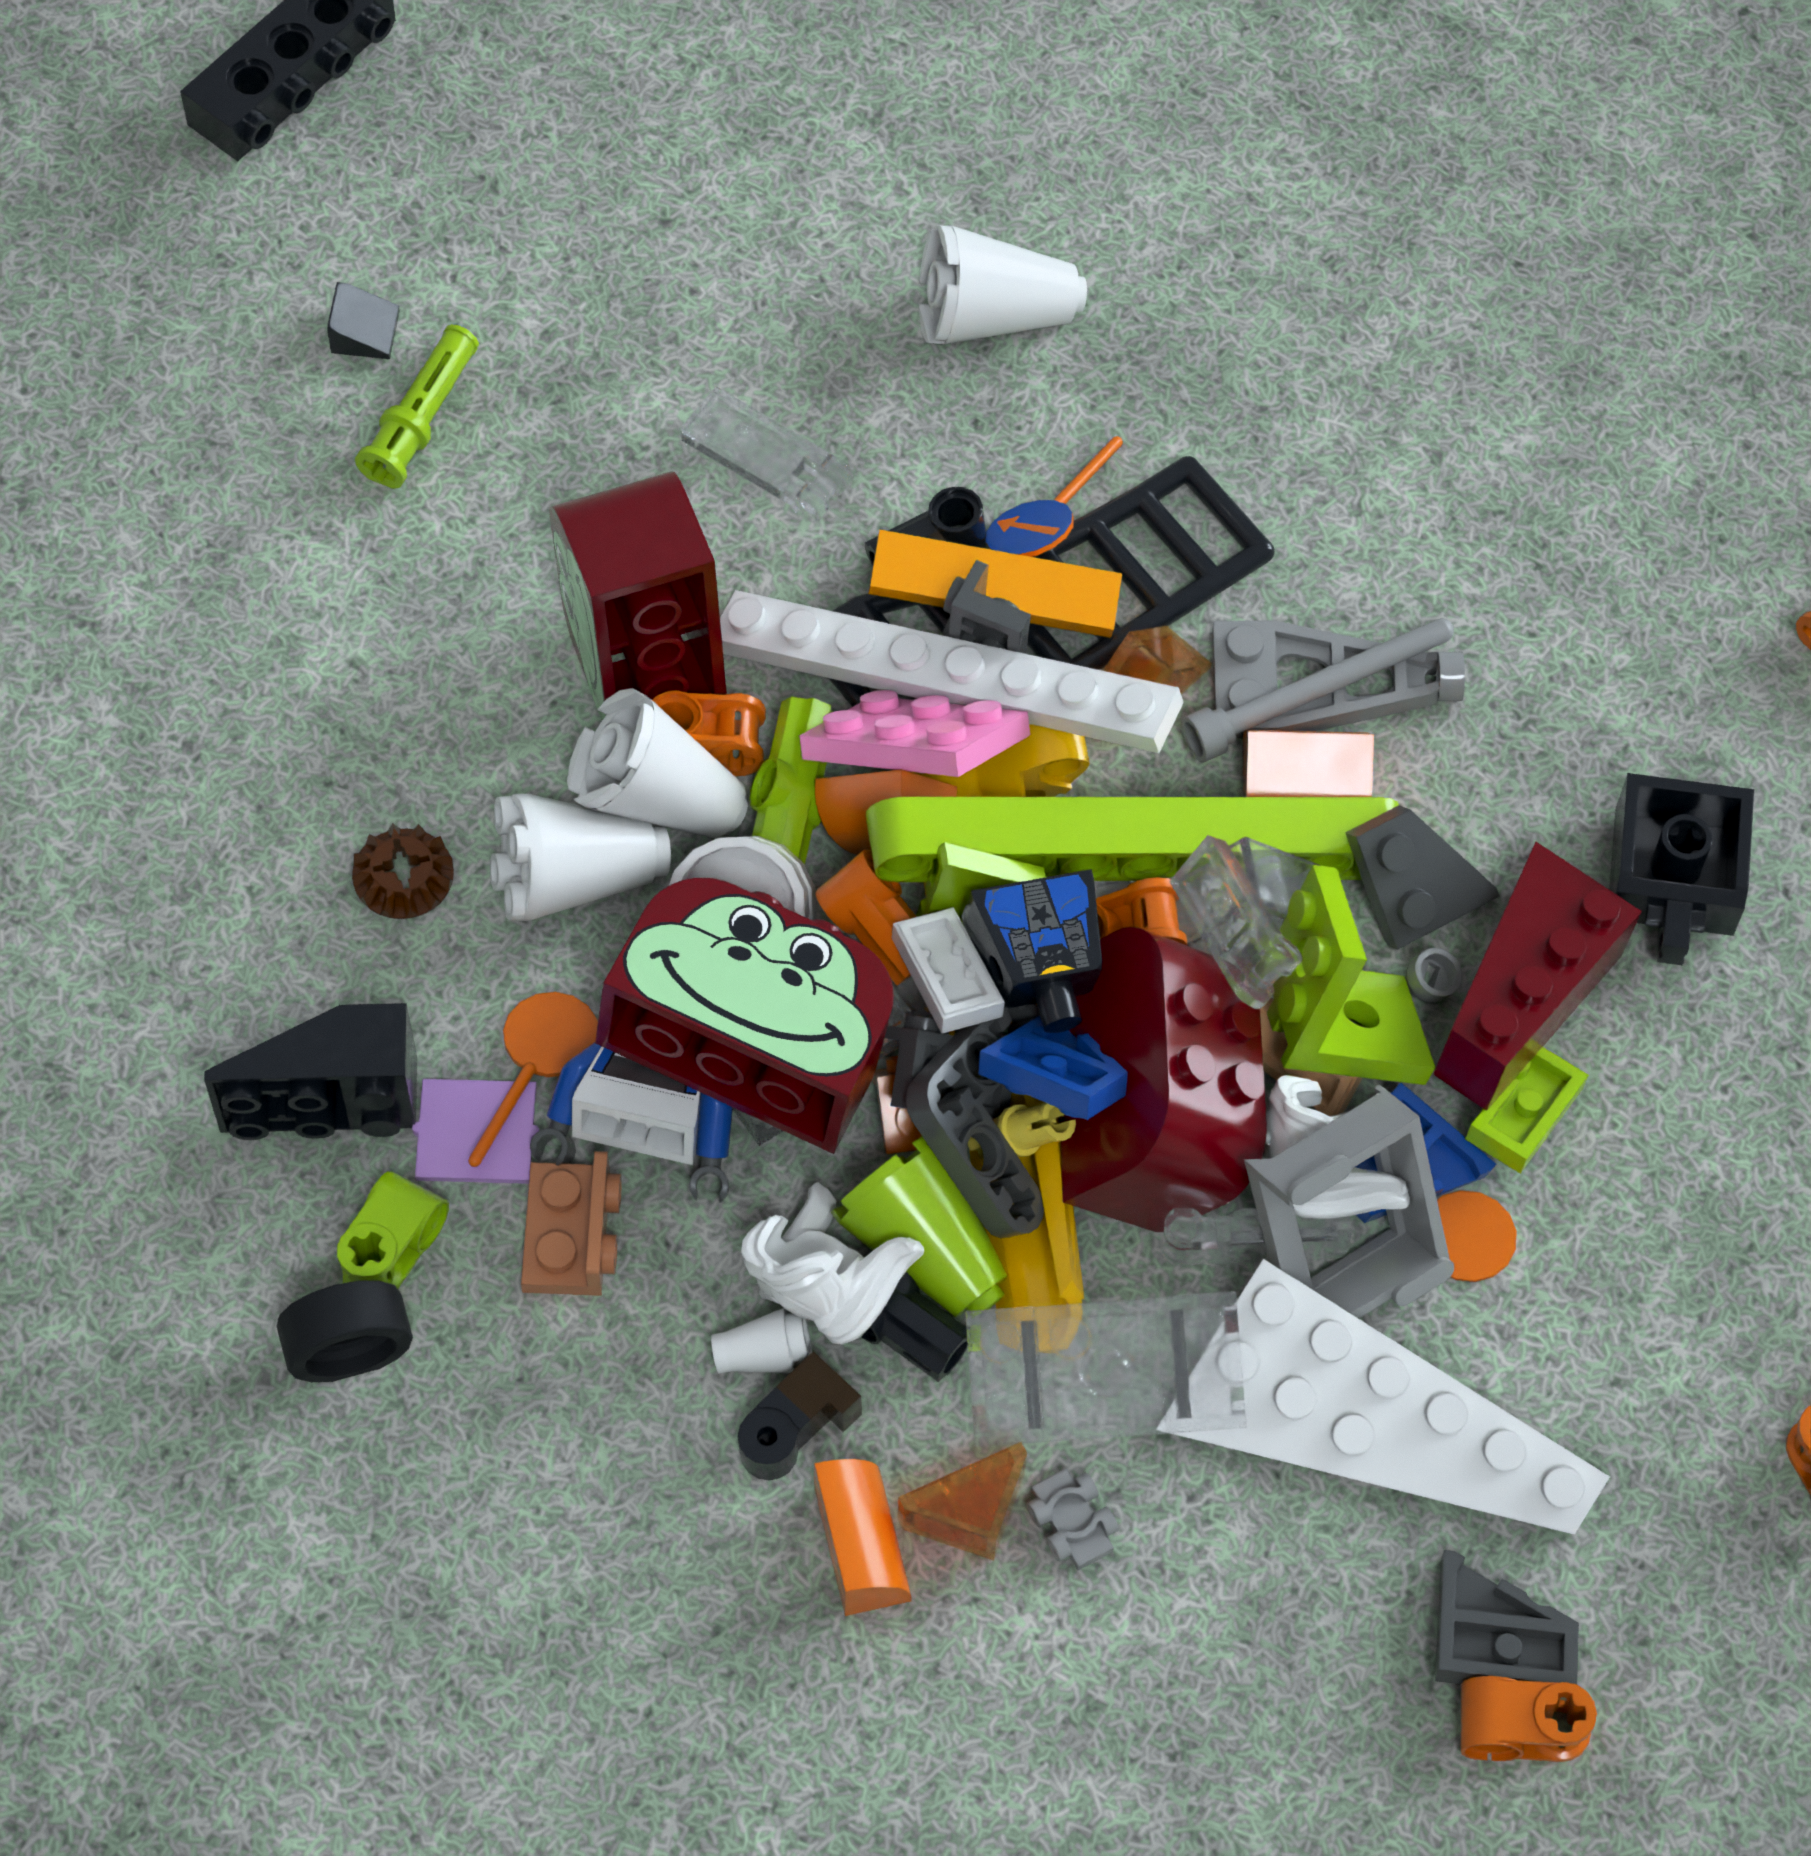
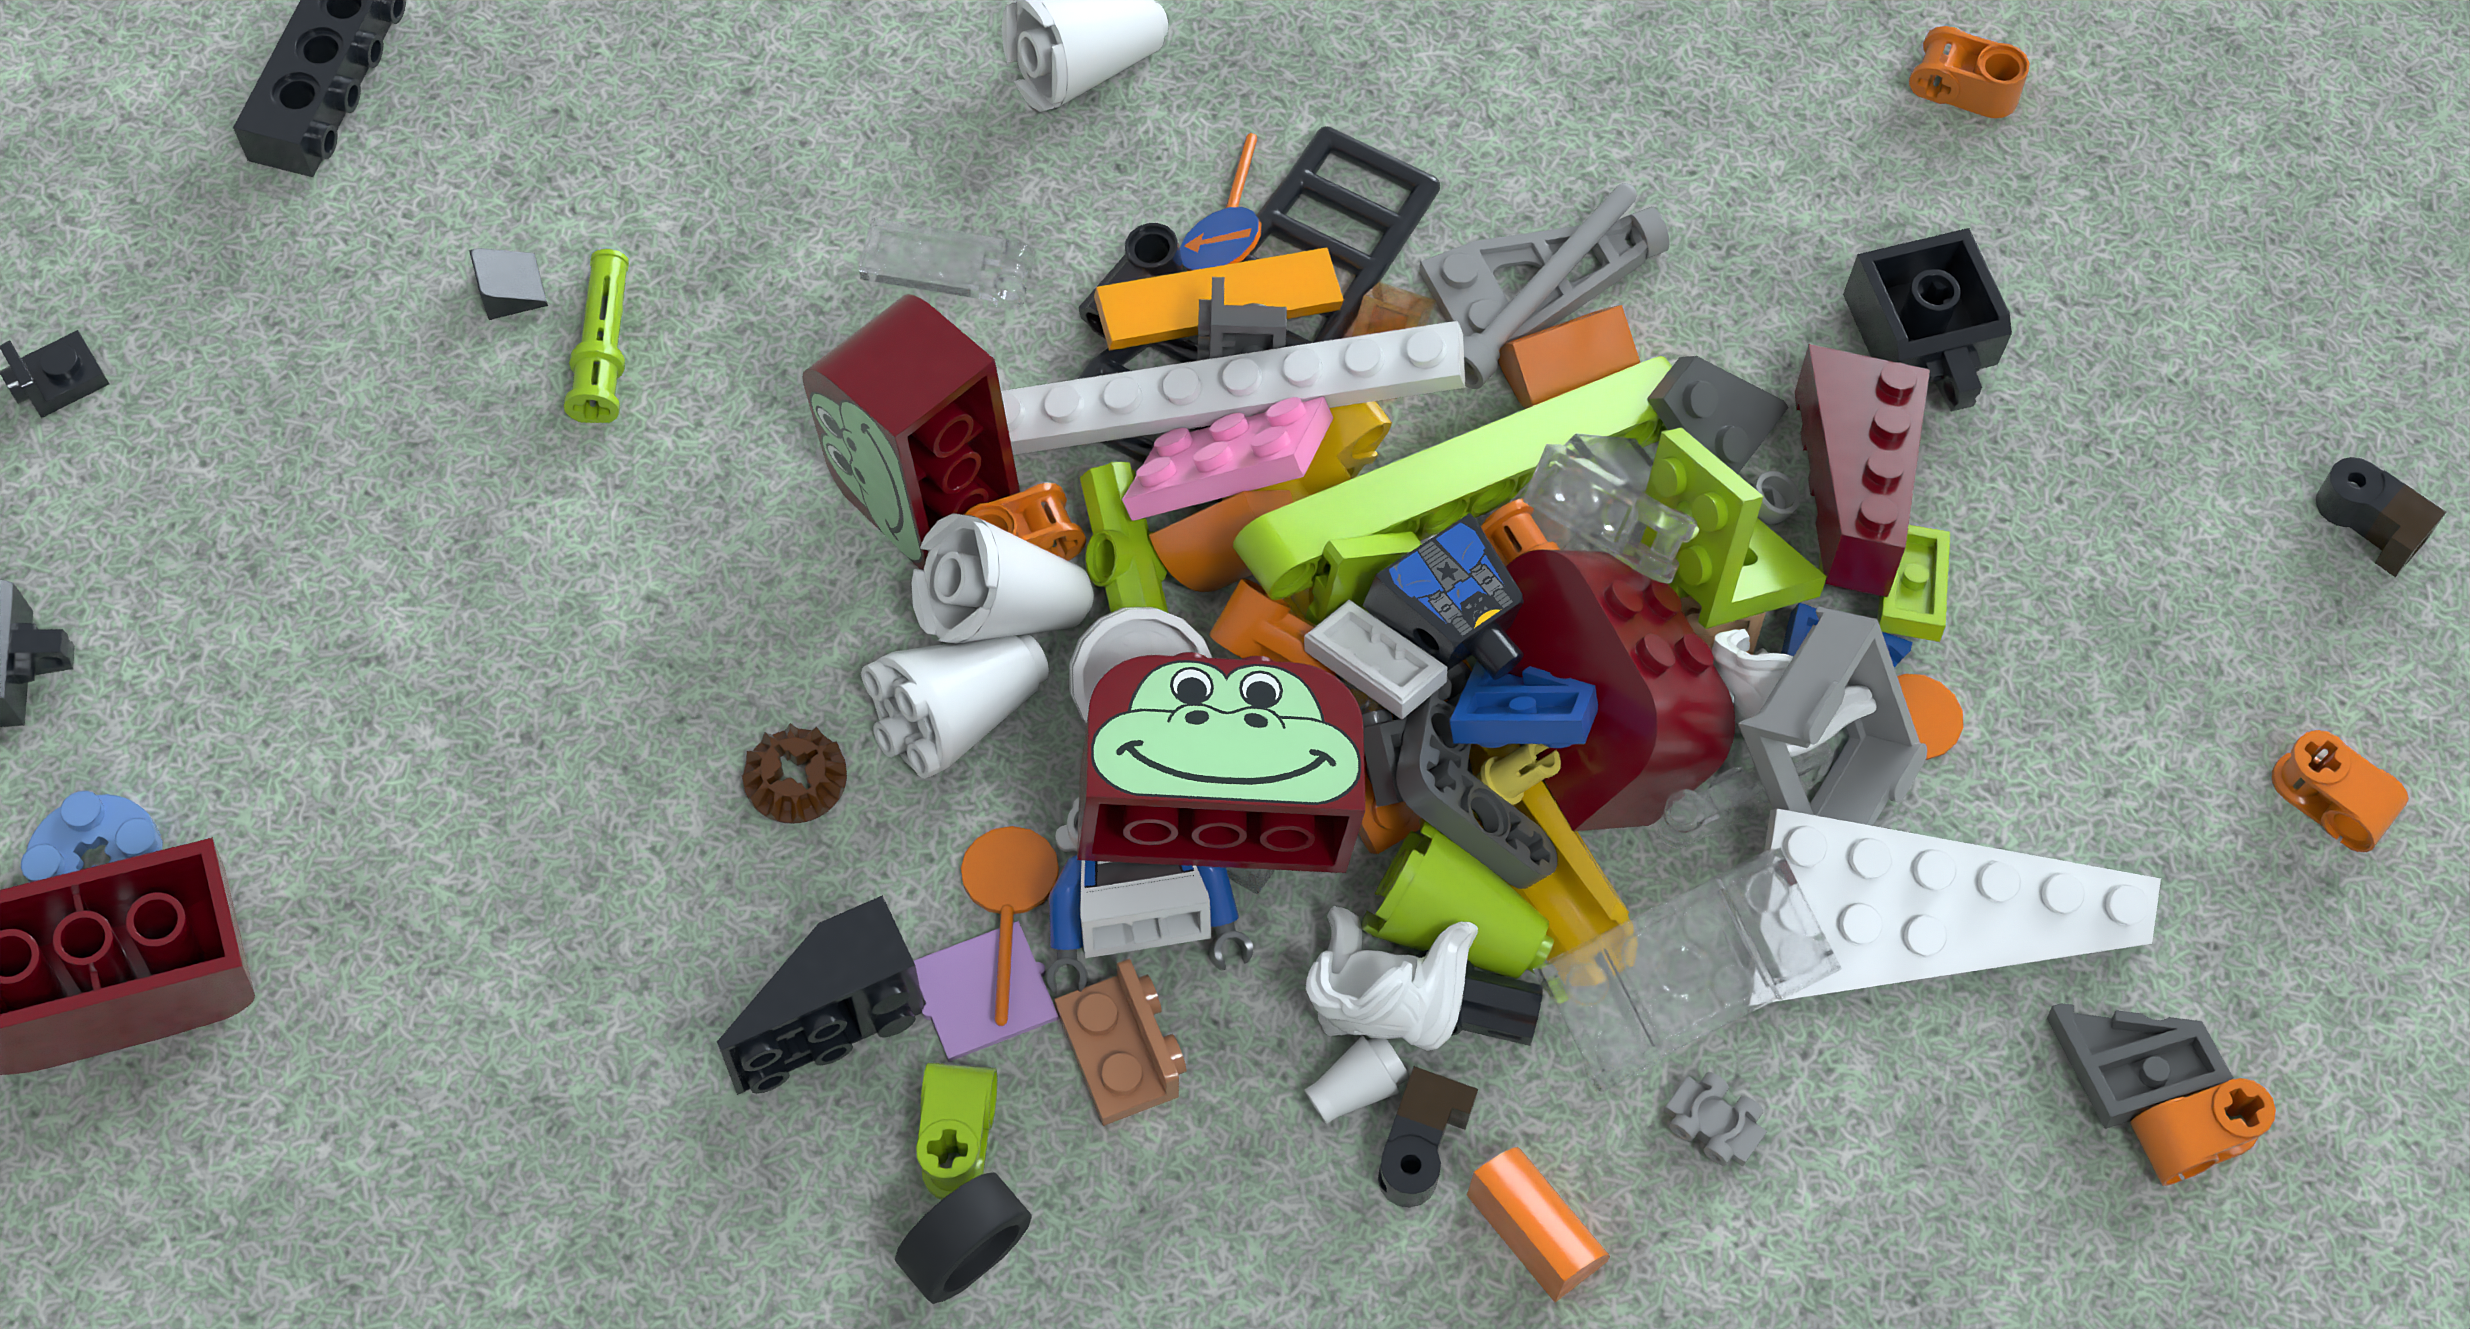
camera: 25 degrees left, 0 degrees up
(969, 1505) = (1625, 1150): clear orange slope -> none

